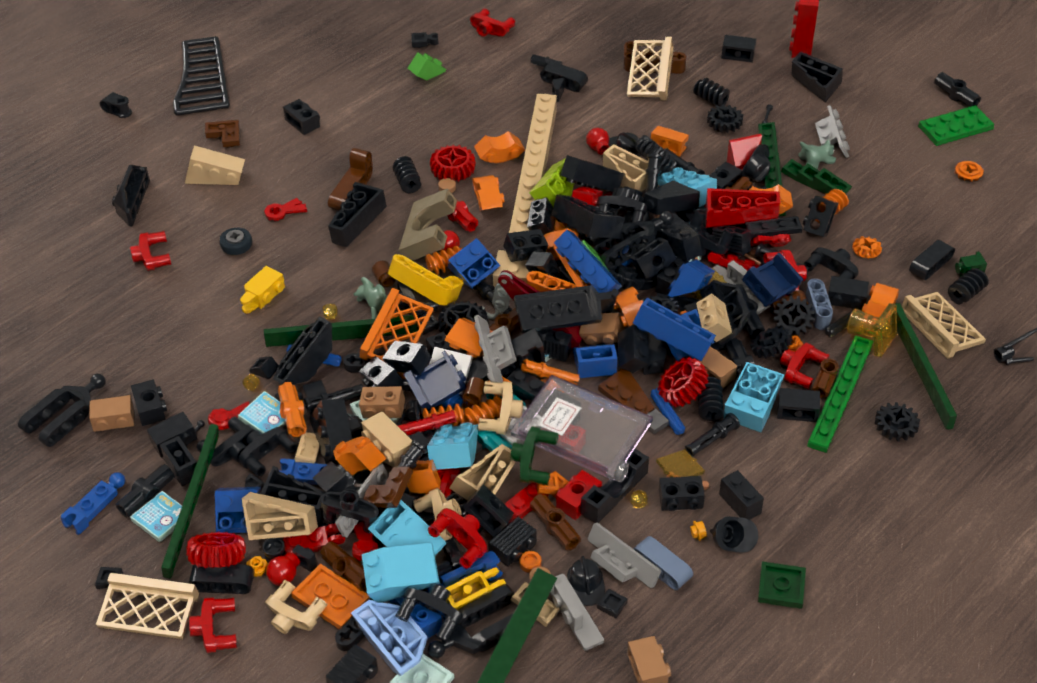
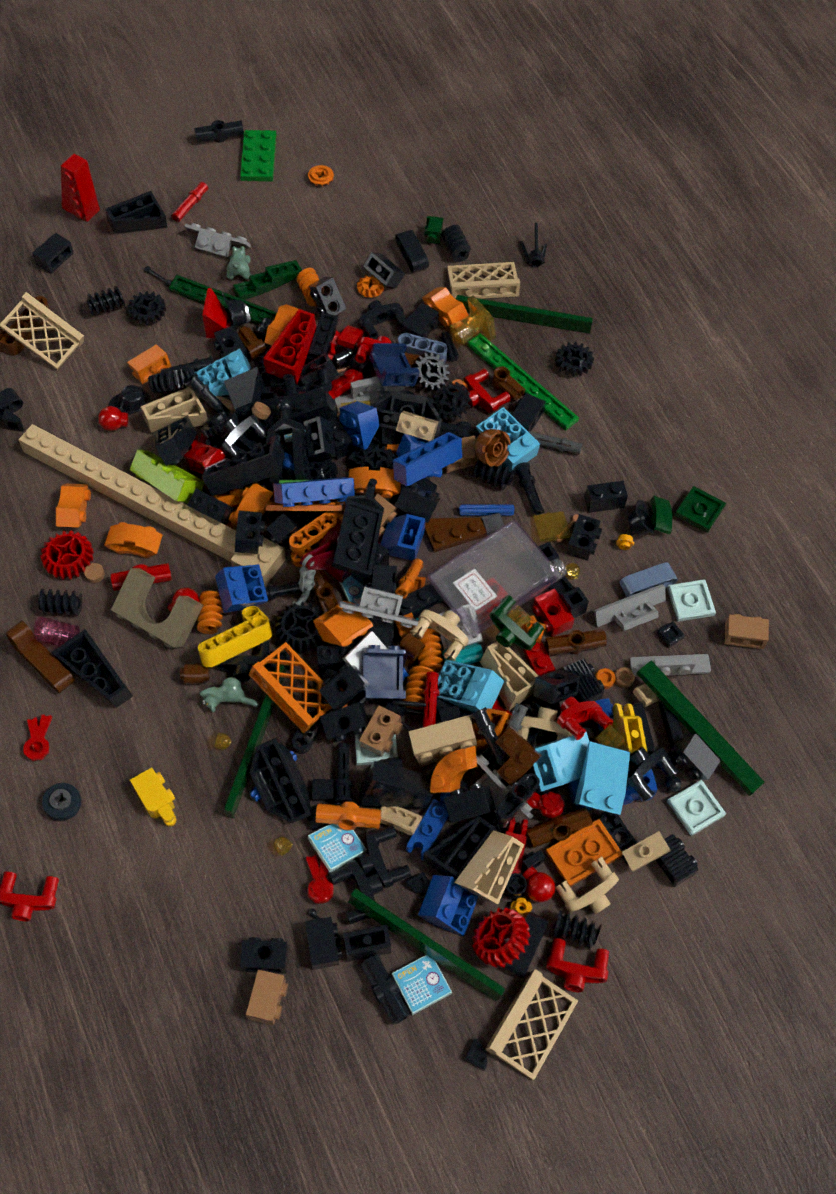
camera: 70 degrees left, 15 degrees up
(53, 403) = (217, 1026): black piece -> none
(92, 503) = (377, 1045): blue plate -> none
(248, 610) = (576, 929): none -> black piece
(264, 367) = (264, 828): black slope -> none
(346, 638) = (646, 851): none -> tan plate
(373, 175) = (54, 631): none -> clear pink piece
(394, 640) = (664, 811): light blue wedge -> none
(426, 484) = (517, 717): none -> dark grey pin
(452, 569) = (610, 737): none -> clear yellow tile
(469, 652) = (695, 756): none -> black brick
(548, 459) = (520, 617): none -> clear yellow tile
(587, 581) = (640, 643): black piece -> none
(655, 209) = (261, 410): none -> medium nougat tile
(664, 610) = (691, 600): none -> light aqua tile
(683, 382) = (483, 474): red gear -> none
(724, 376) = (492, 447): none -> dark orange cylinder
(750, 550) = (662, 515): none -> dark green slope
(783, 443) = (576, 447): none -> dark grey pin
(798, 249) = (350, 337): none -> red slope
(862, 102) = (193, 197): none -> red pin
(888, 245) = (384, 270): none -> black brick

